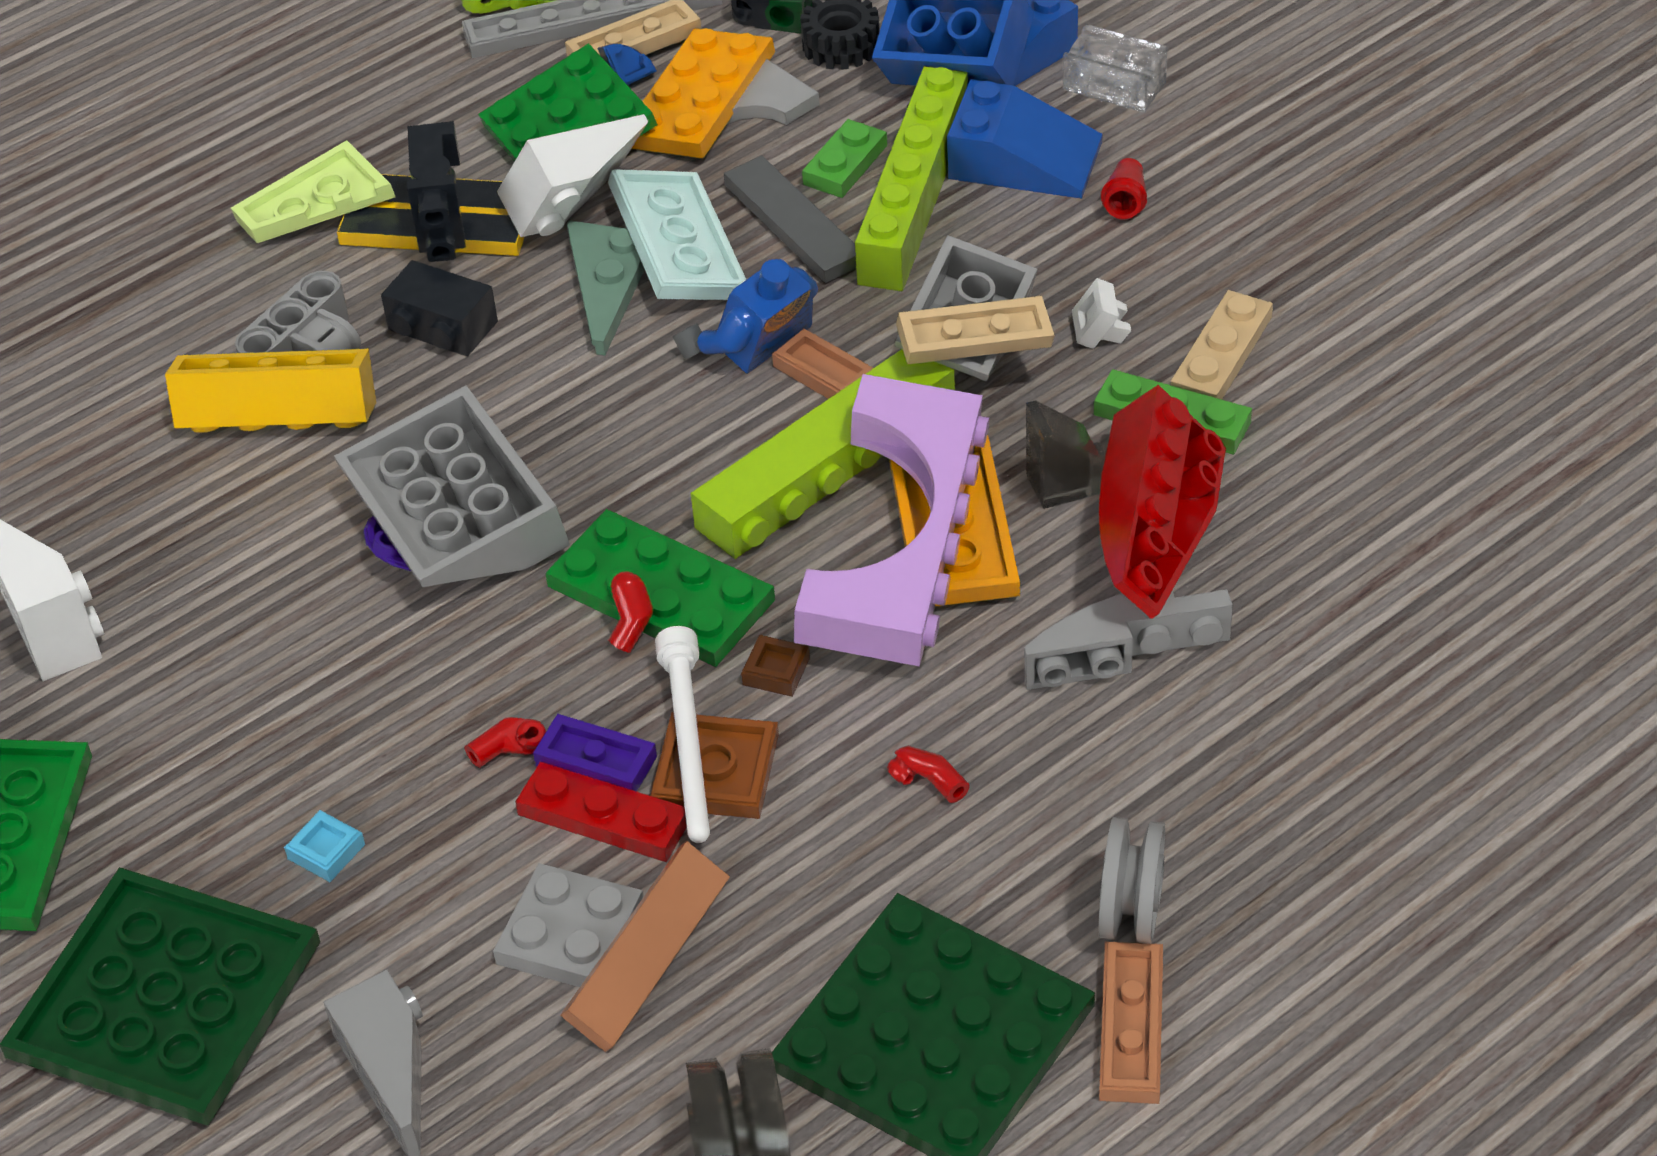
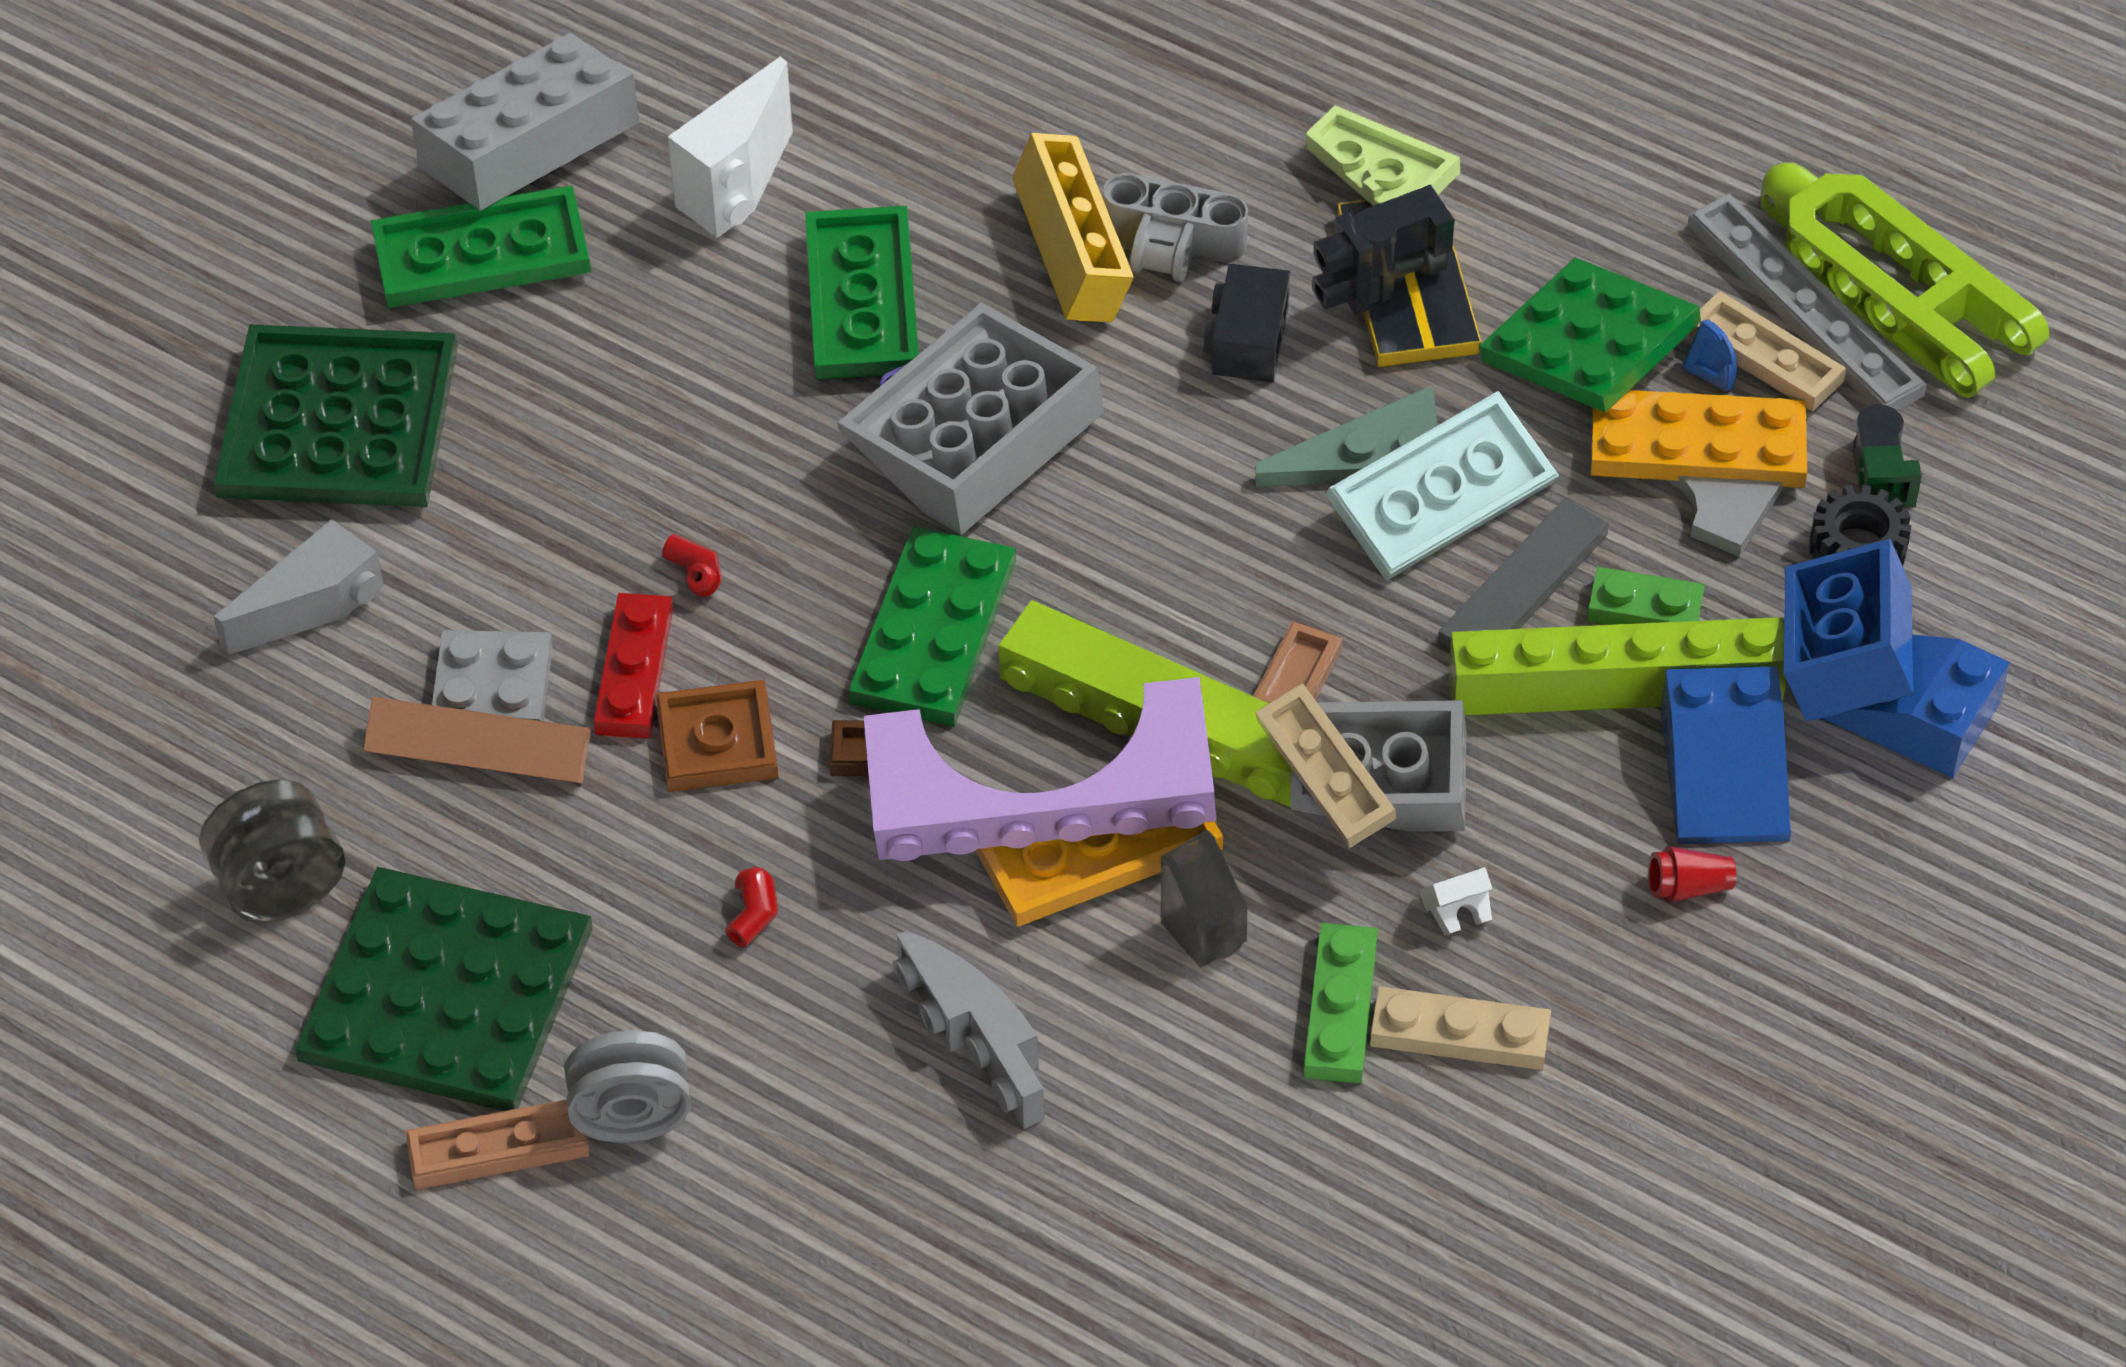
camera: 70 degrees right, 5 degrees up
(247, 555) = (861, 291): none -> green plate
(324, 846) = (536, 473): medium azure tile -> none
(563, 172) = (1462, 356): white slope -> none
(596, 752) = (692, 635): dark purple plate -> none
(633, 607) = (873, 602): red arm -> none
(677, 653) = (829, 658): white piece -> none
(757, 317) = (1334, 589): blue torso -> none
(1115, 68) = (1900, 815): clear hinge -> none
(1156, 495) = (1149, 1002): red wedge -> none

